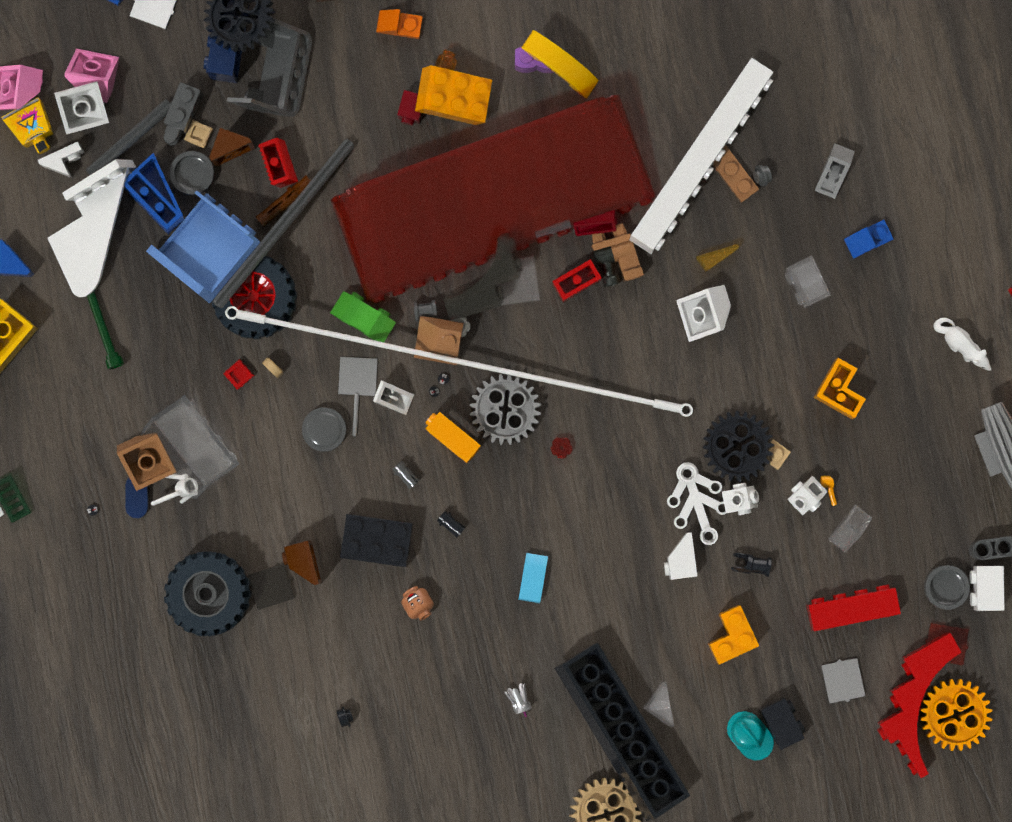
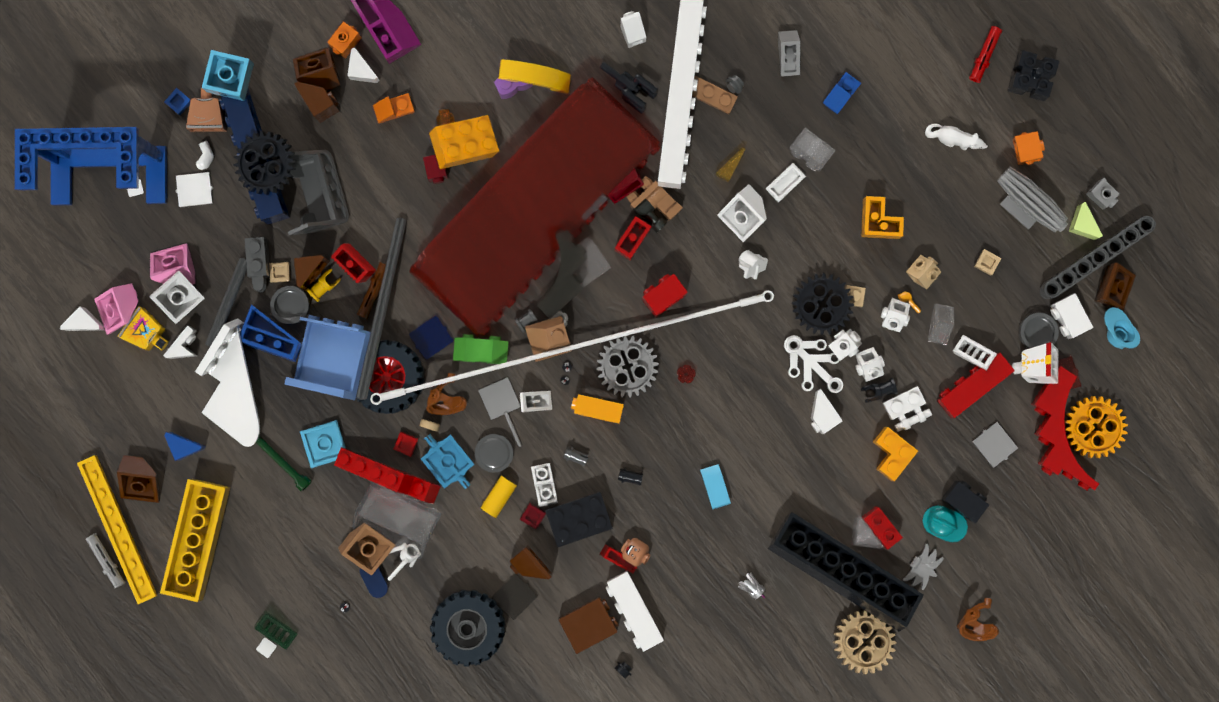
camera: 30 degrees left, 0 degrees up
(155, 332) = (323, 443): none -> medium azure tile
(203, 398) = (387, 476): none -> red arch
(234, 170) = (322, 286): none -> yellow piece
(272, 413) = (447, 461): none -> dark azure plate
(304, 357) = (450, 404): none -> dark orange helmet
(306, 476) = (498, 496): none -> yellow brick
(319, 279) = (431, 337): none -> clear blue piece
(331, 514) = (533, 516): none -> dark red tile
(332, 653) = (588, 624): none -> reddish brown brick
(359, 487) = (544, 484): none -> white slope
(386, 663) = (635, 611): none -> white brick
(394, 598) = (616, 558): none -> red piece
(579, 355) = (664, 295): none -> red brick
(653, 124) = (631, 86): none -> black plant
(682, 706) = (882, 527): none -> red brick
(685, 65) = (633, 29): none -> white slope
(686, 369) = (752, 264): none -> white piece
(704, 769) = (923, 567): none -> light grey piece
(754, 532) = (869, 364): none -> white brick
(763, 302) = (785, 182): none -> white tile
(771, 591) = (905, 403): none -> white plate
(859, 465) = (924, 271): none -> tan brick
(860, 560) = (961, 345): none -> white slope
(929, 620) = (1039, 364): none -> white torso
(930, 489) = (987, 262): none -> tan plate

